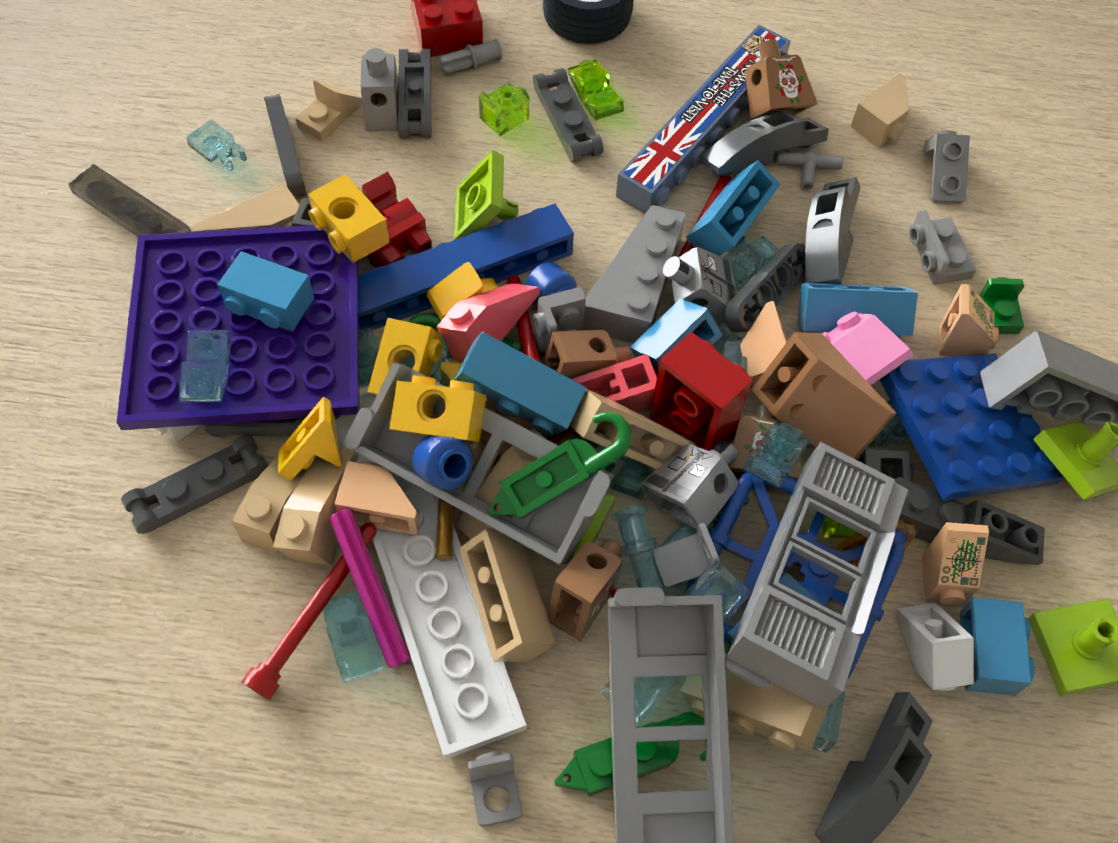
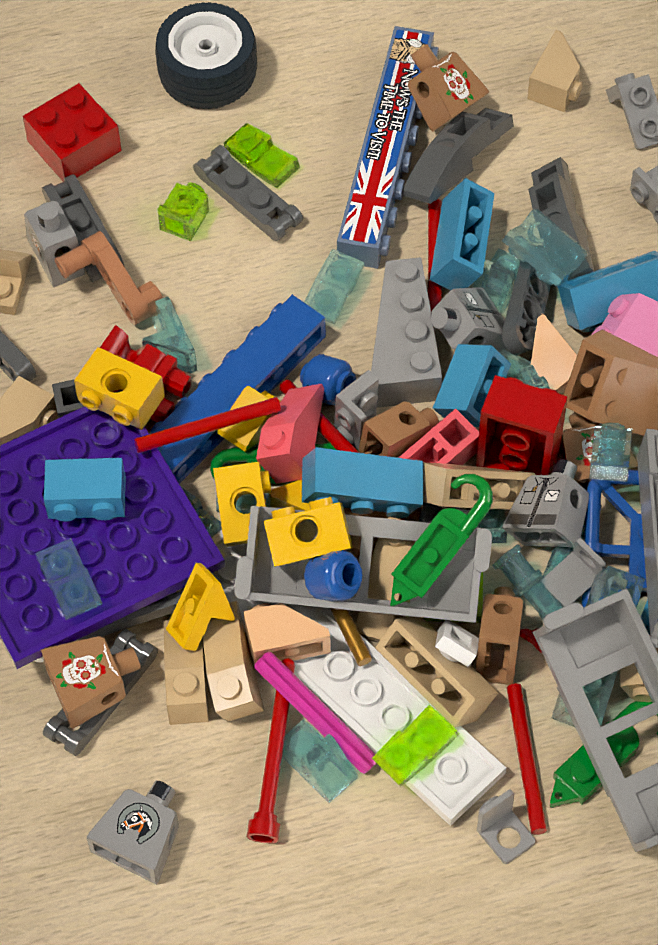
camera: 20 degrees left, 0 degrees up
(144, 632) = (137, 831): none -> light grey torso
(178, 464) = (88, 676): none -> medium nougat torso
(410, 280) = (207, 424): none -> red bar
(424, 165) = (96, 250): none -> nougat beam
(434, 203) = (171, 336): none -> clear light blue slope
(445, 665) = (416, 746): none -> clear neon green slope
(471, 56) = (118, 166): light grey axle -> none
(481, 197) = (216, 316): lime tile -> none
(534, 577) = (456, 643): none -> white plate
(554, 726) = (526, 759): none -> red bar
(599, 210) = (334, 284): none -> clear light blue slope
(803, 245) = (545, 248): none -> clear light blue bracket
(809, 161) = (507, 153): light grey piece -> none

